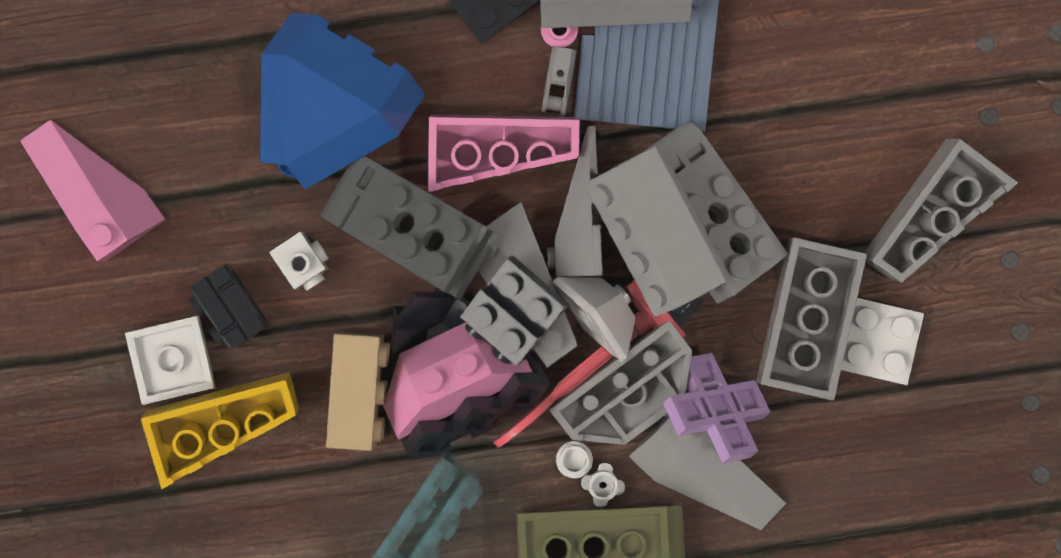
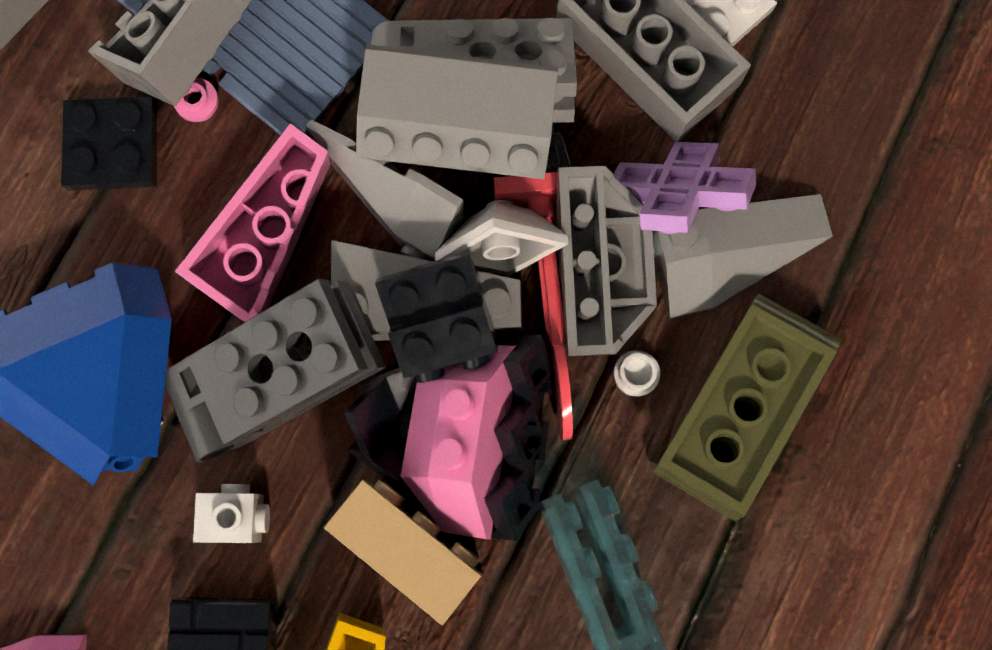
camera: 55 degrees left, 10 degrees down
(559, 74) = (239, 128): light grey bar -> none
(612, 488) = (692, 353): white plate -> none

